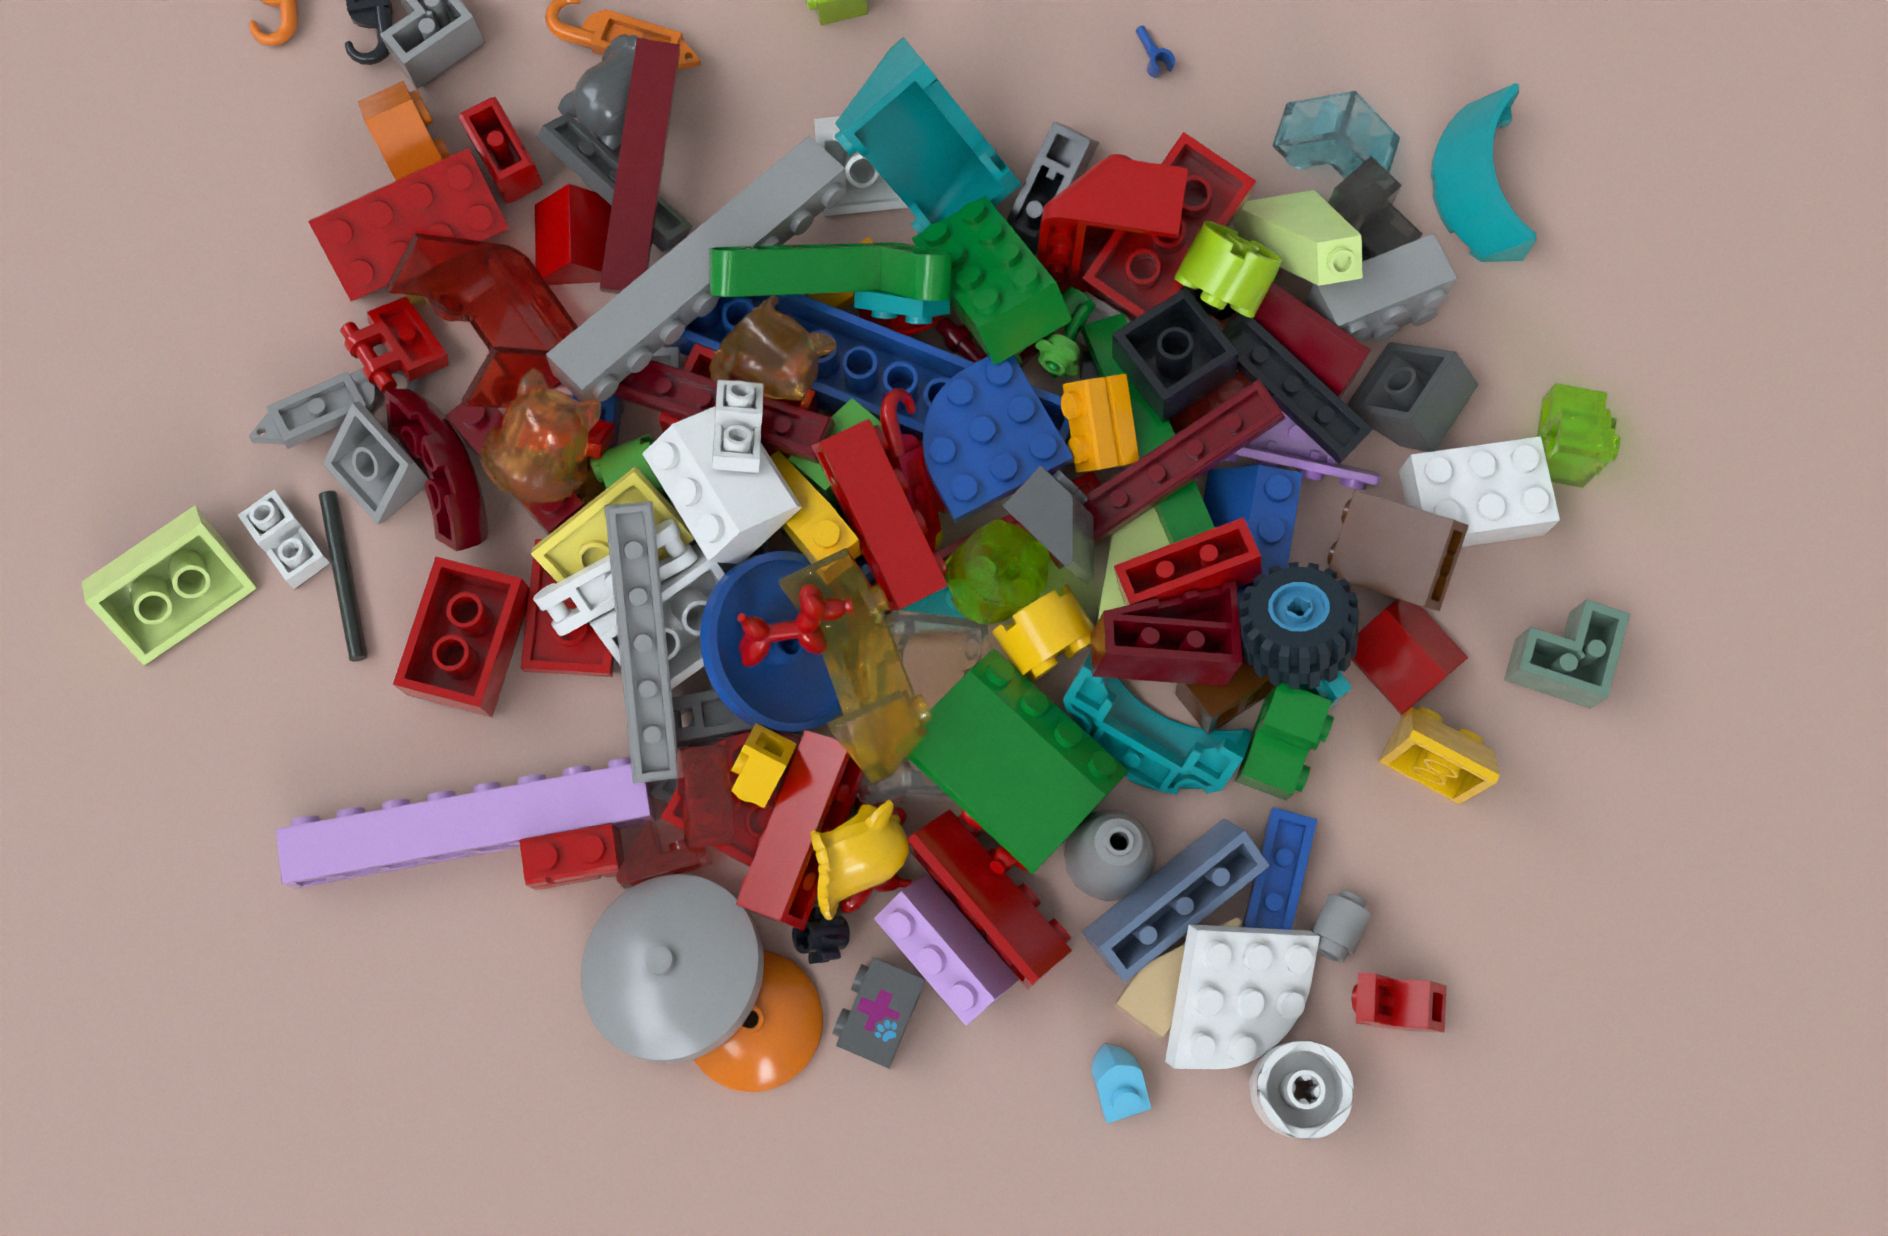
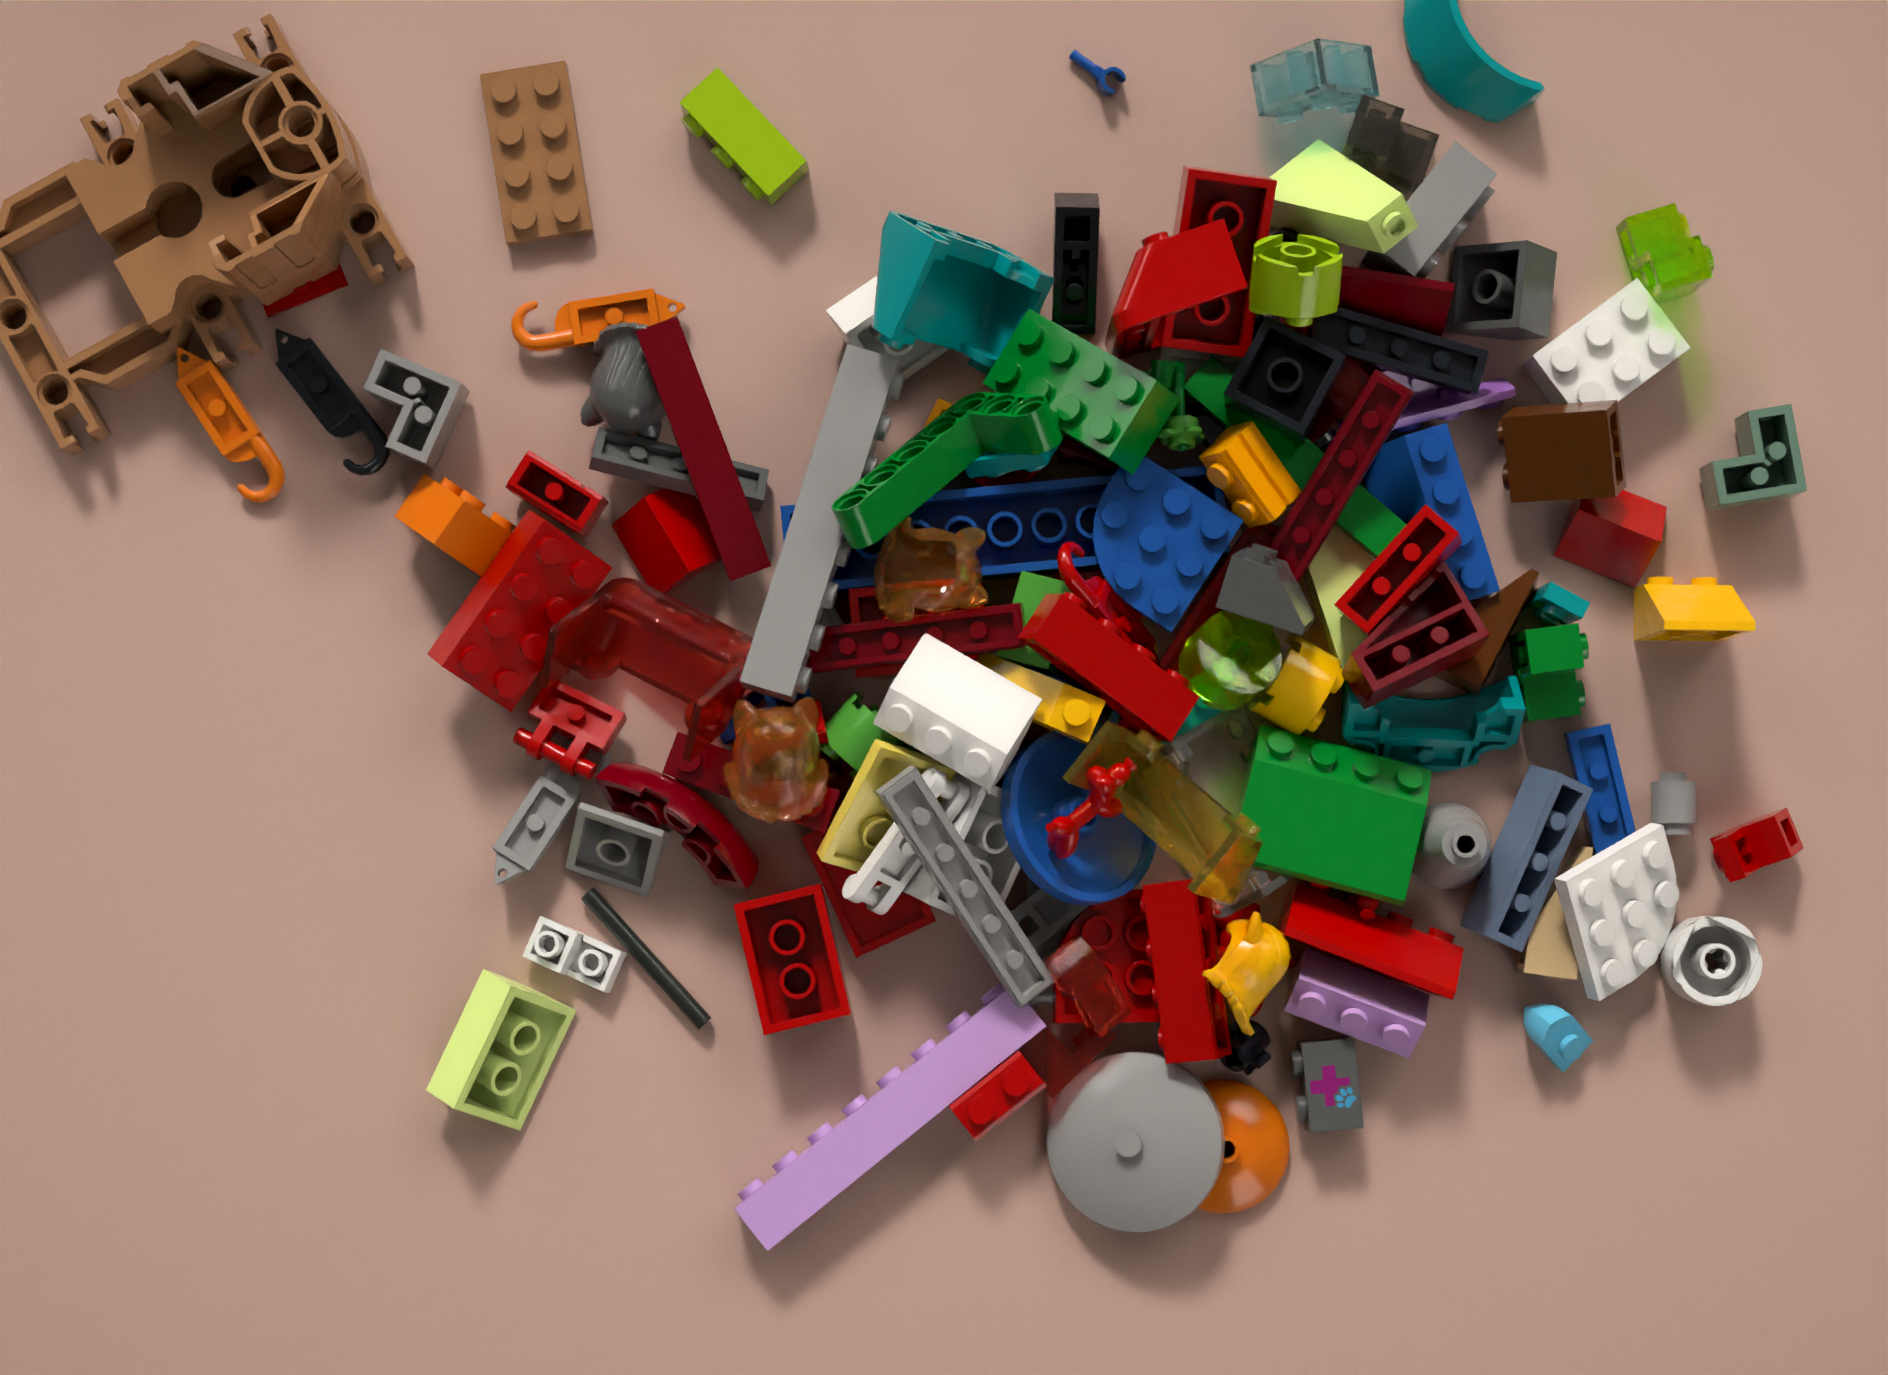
camera: 25 degrees left, 10 degrees up
(737, 426) = (947, 658): white slope -> none
(761, 765) = (1123, 935): yellow brick -> none
(1299, 625) = (1520, 574): black wheel -> none

